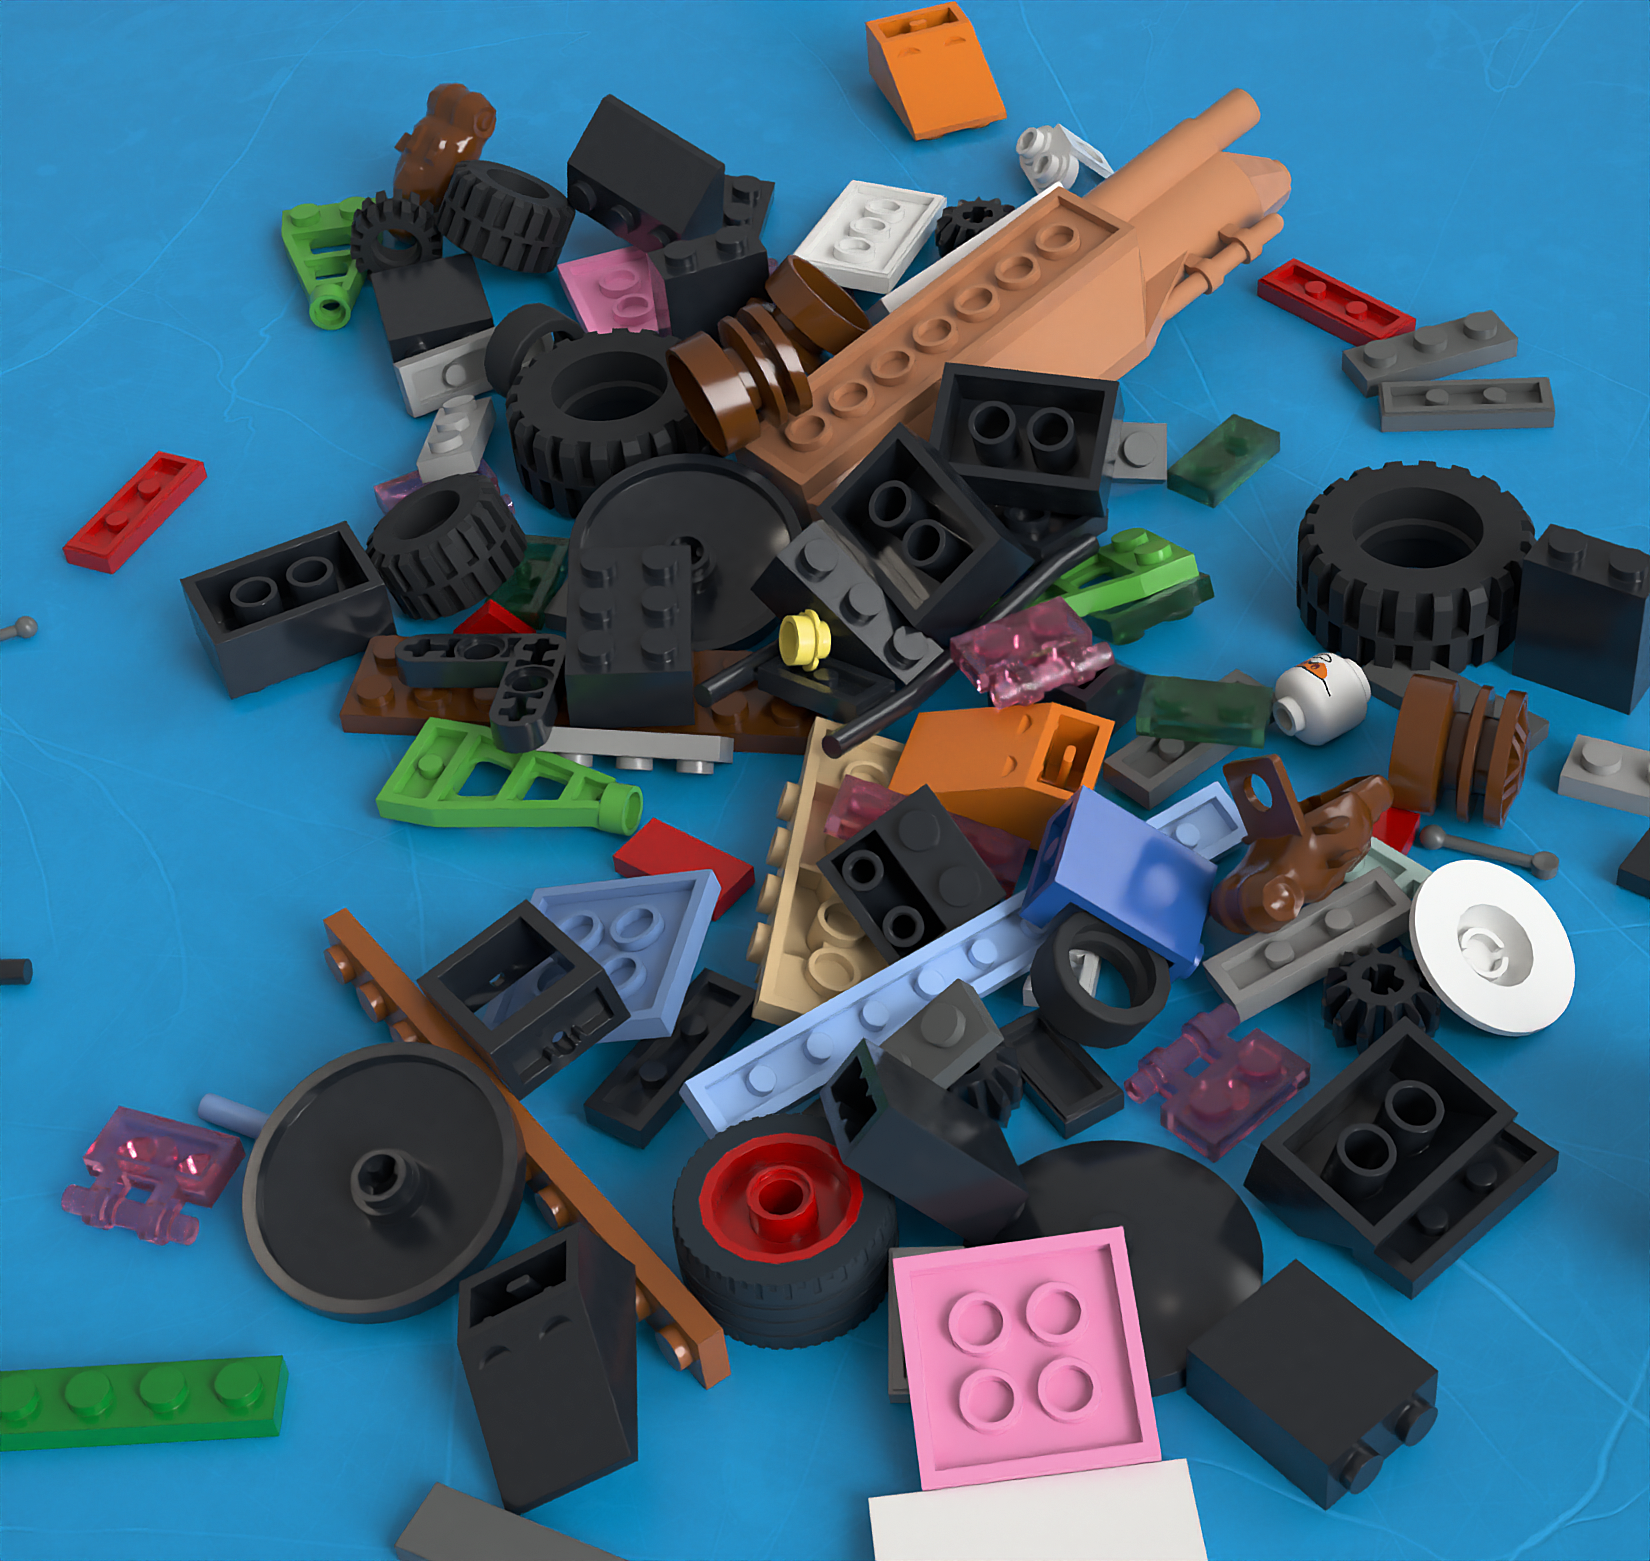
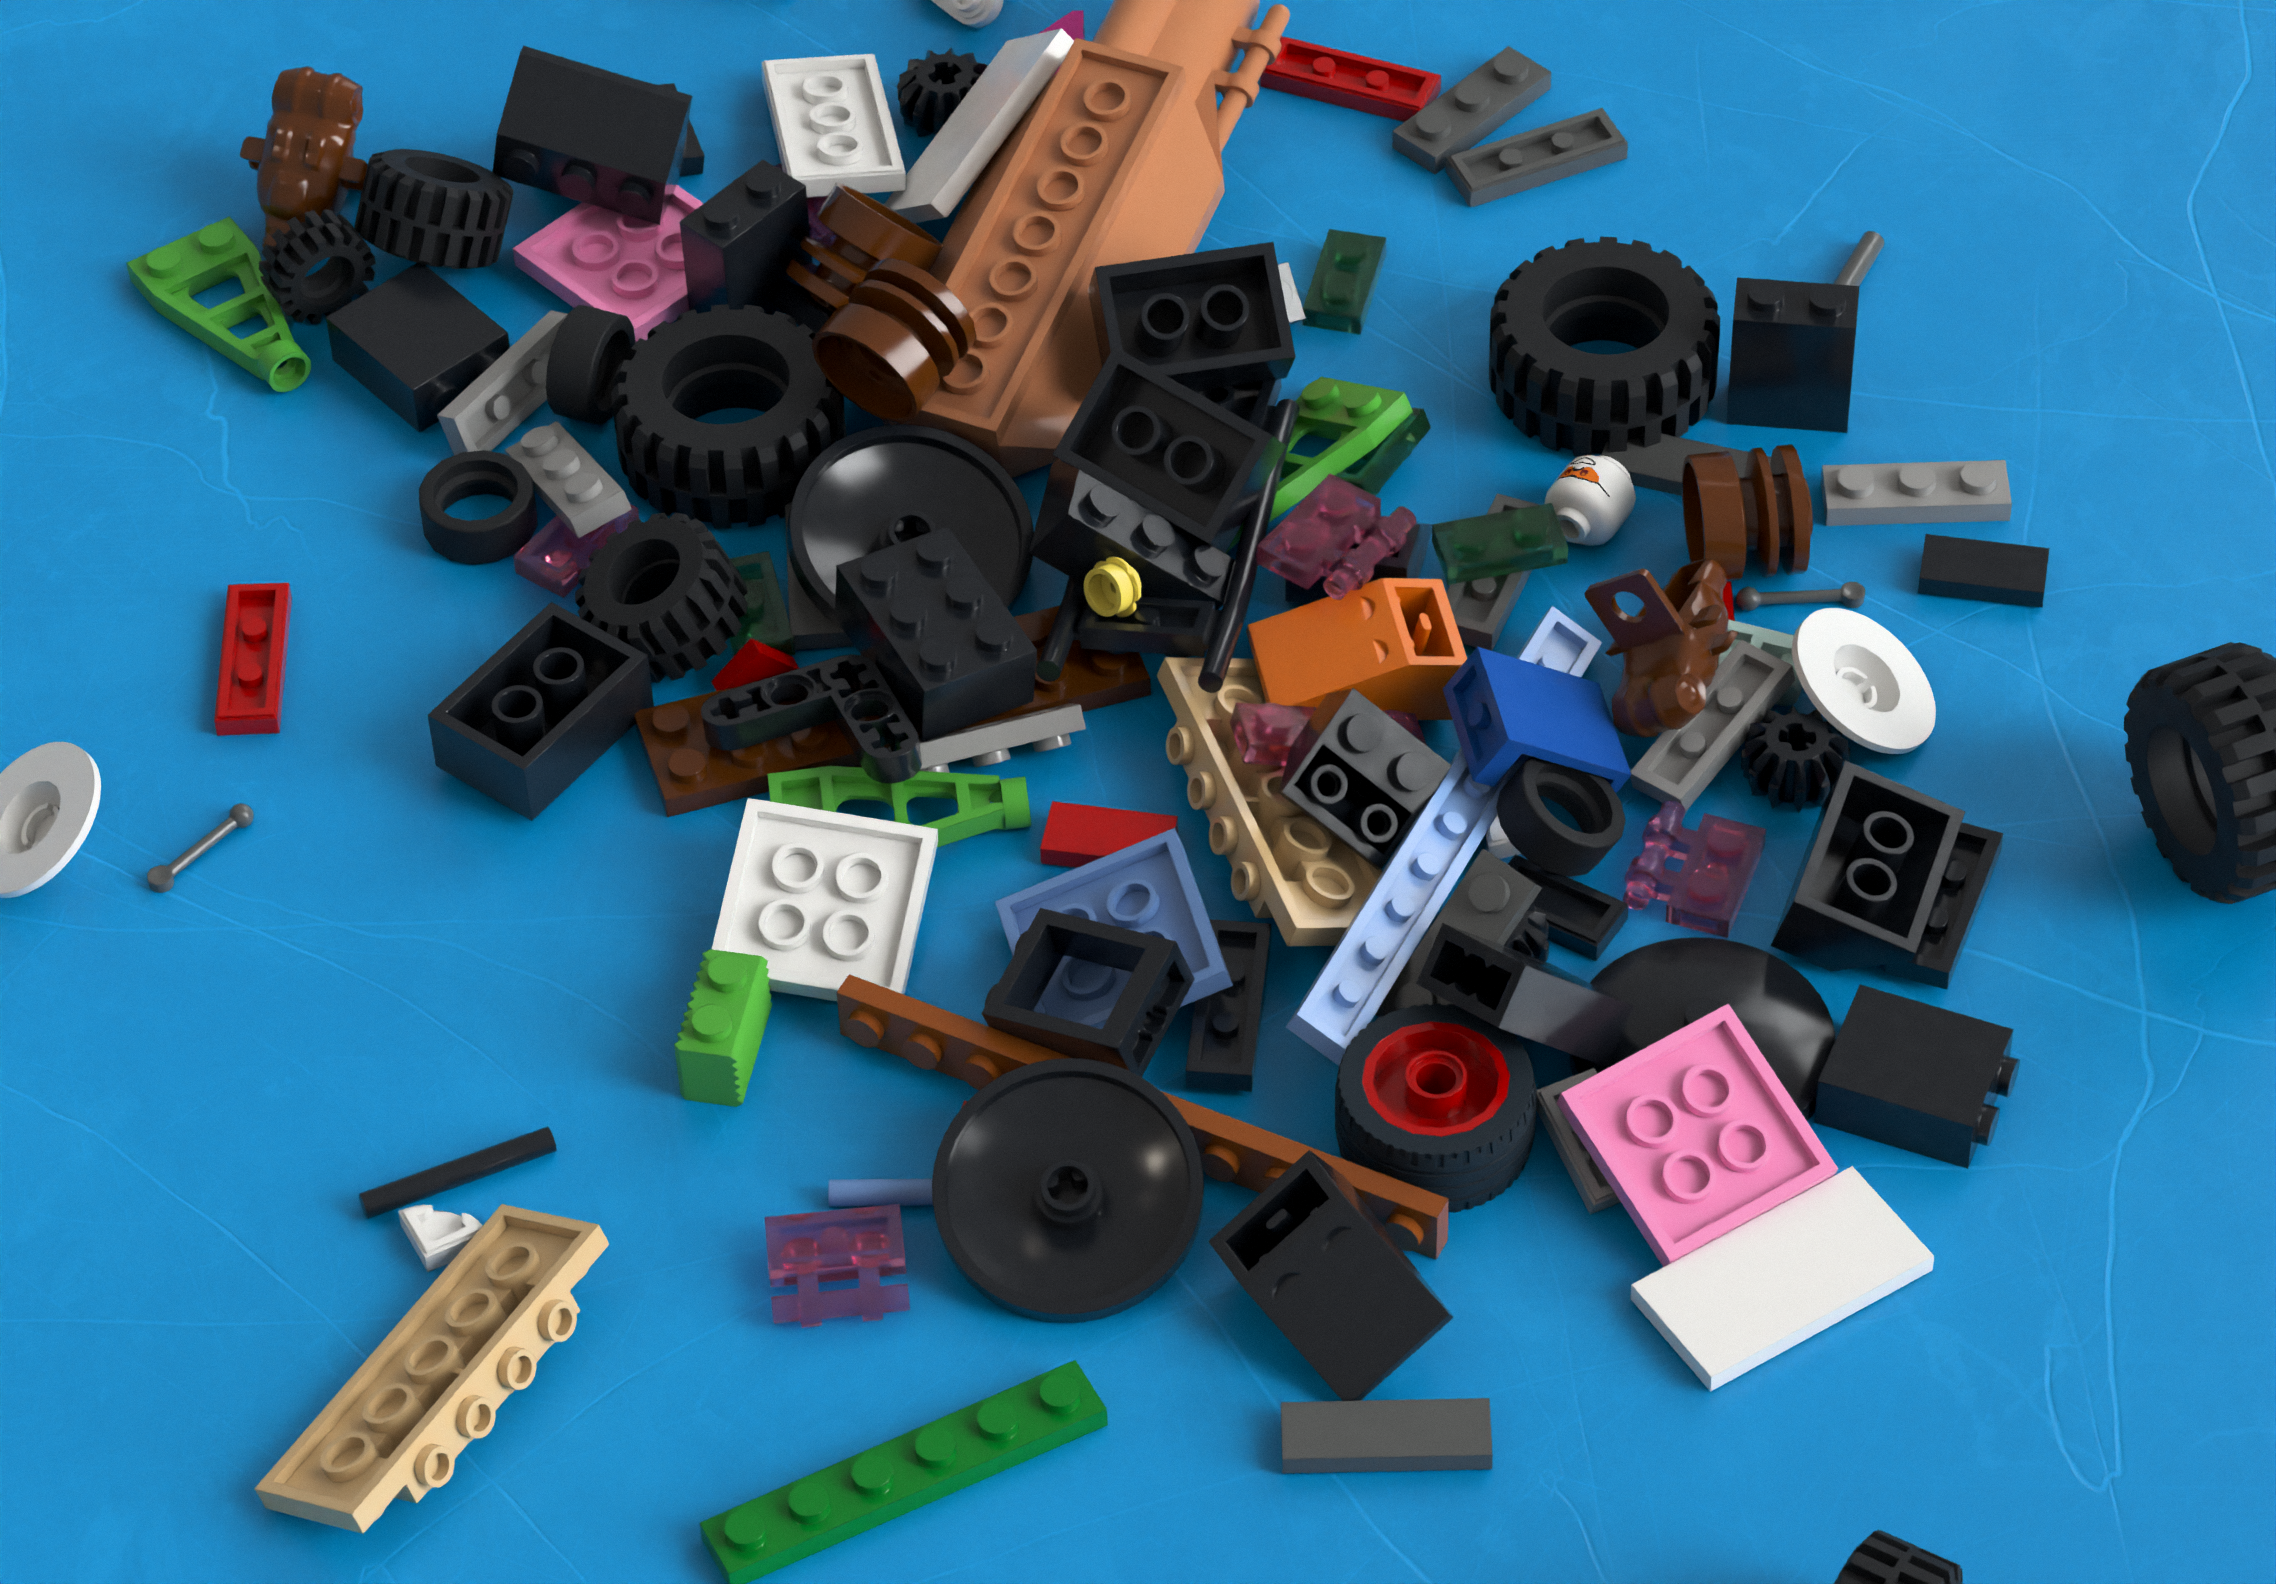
camera: 30 degrees left, 5 degrees up
(222, 920) = (723, 1027): none -> bright green brick
(371, 423) = (481, 539): none -> black tyre
(383, 839) = (826, 897): none -> white plate

